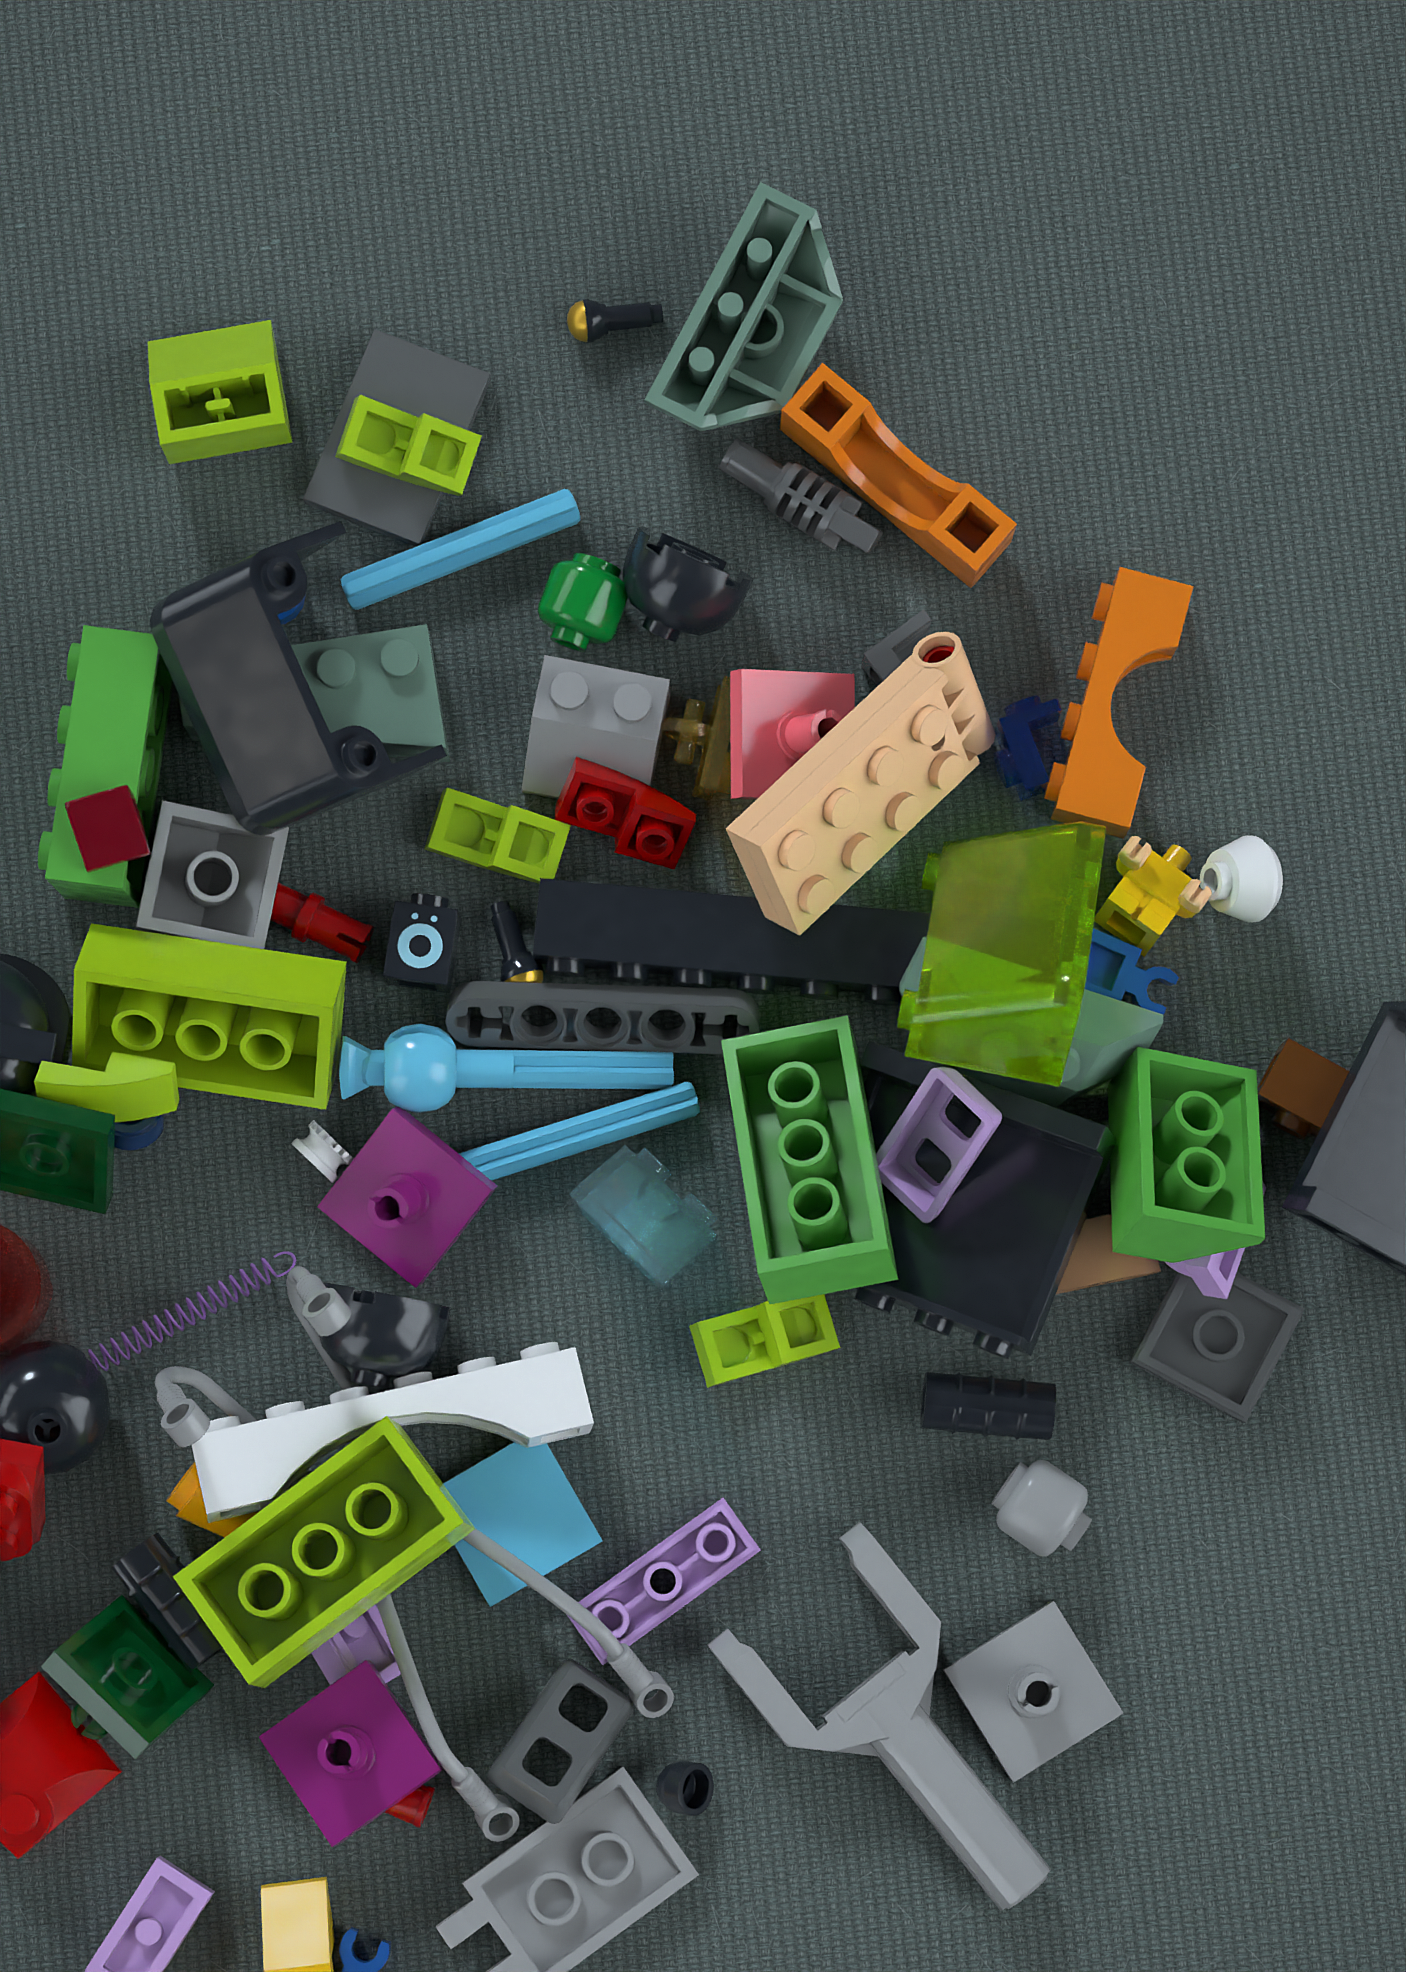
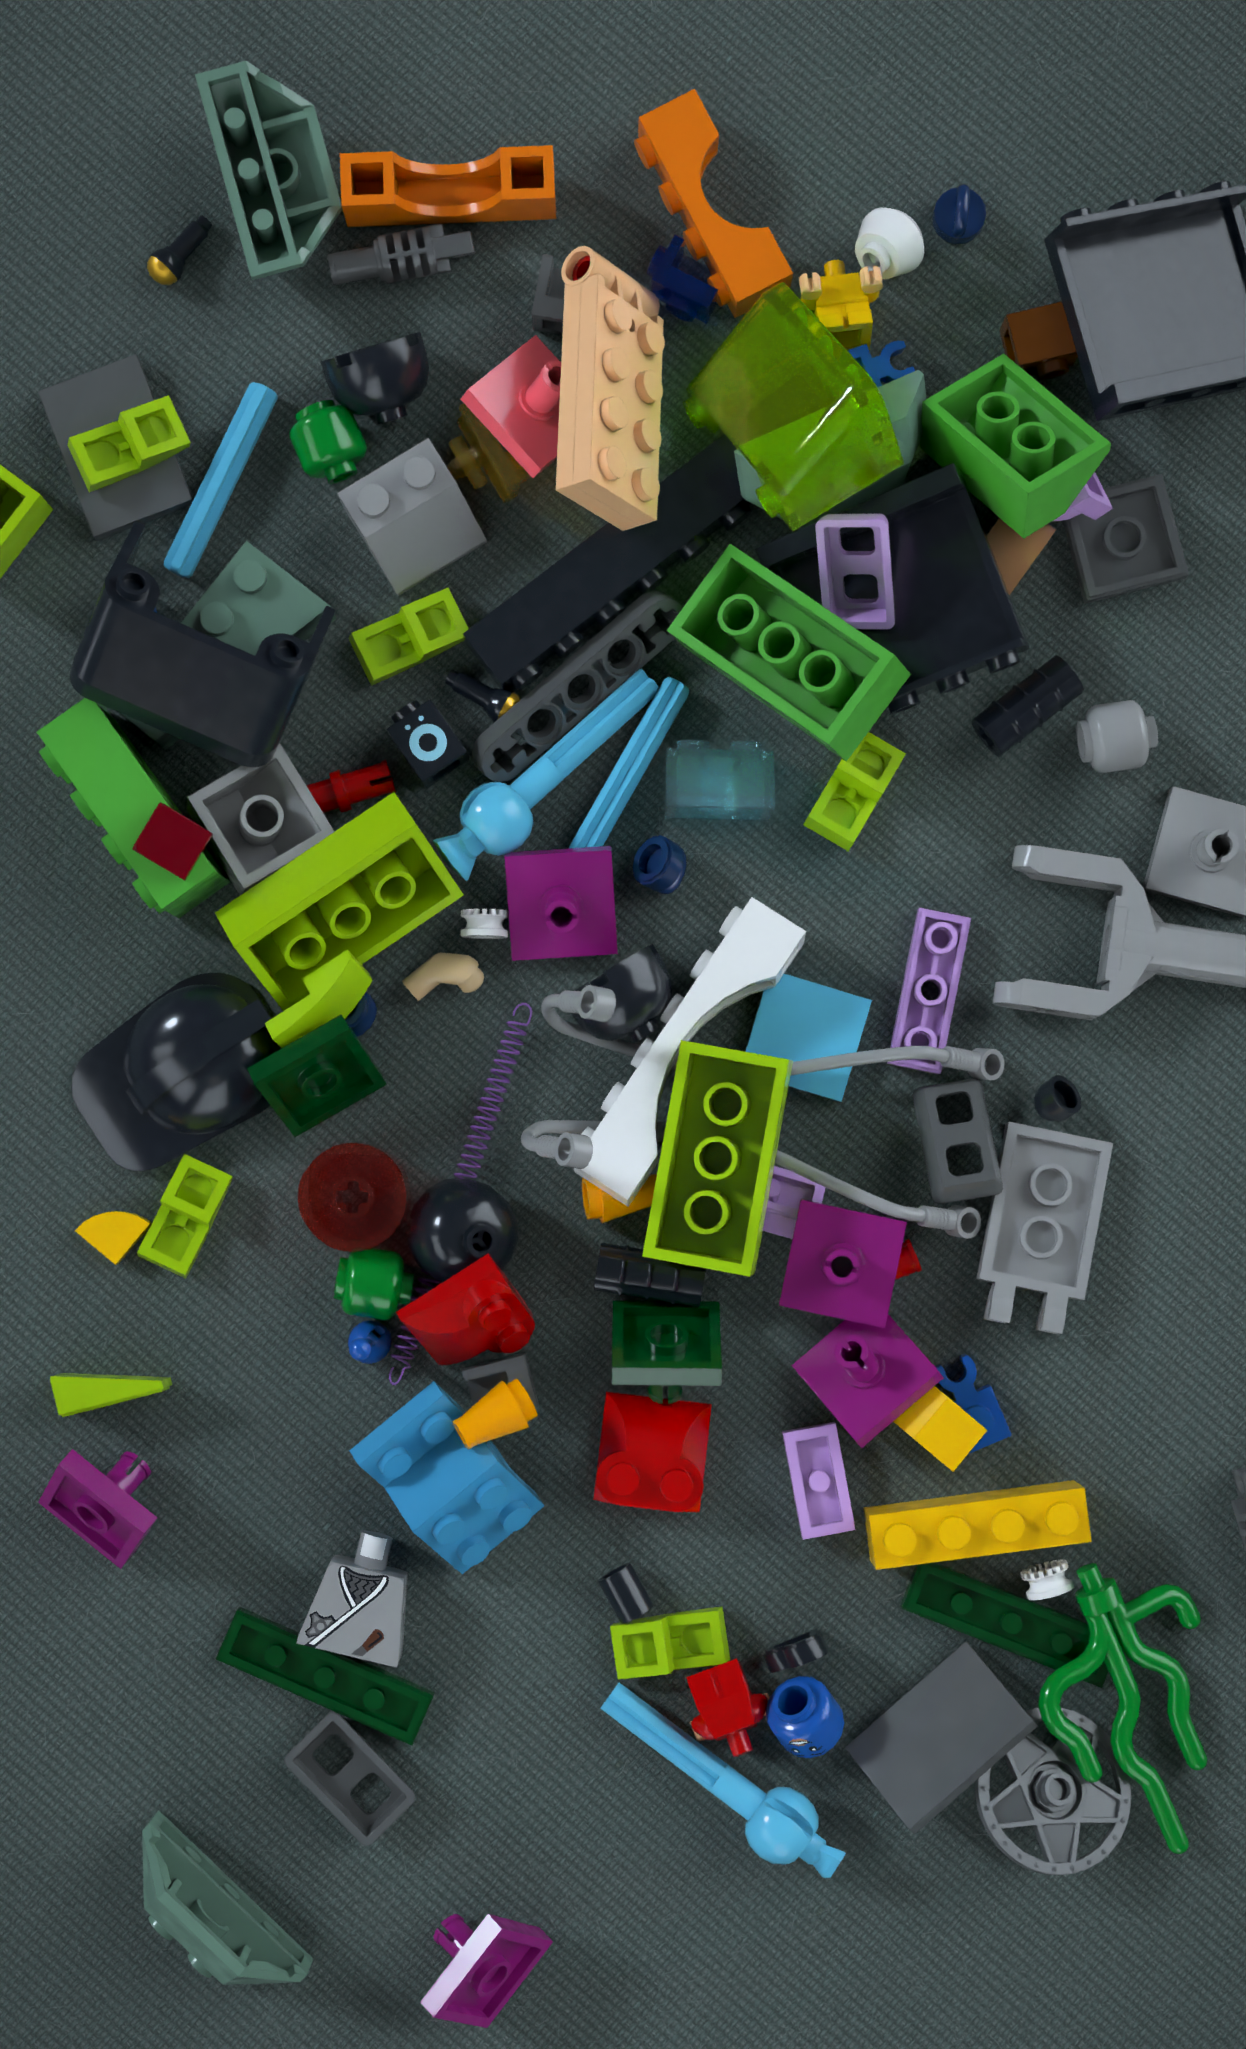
camera: 45 degrees left, 5 degrees up
(251, 1159) = (447, 969): none -> tan arm
(278, 1877) = (867, 1375): none -> magenta tile
(527, 1244) = (660, 865): none -> dark blue tile
(638, 816) = (479, 544): red slope -> none
(1335, 910) = (959, 215): none -> dark blue tile

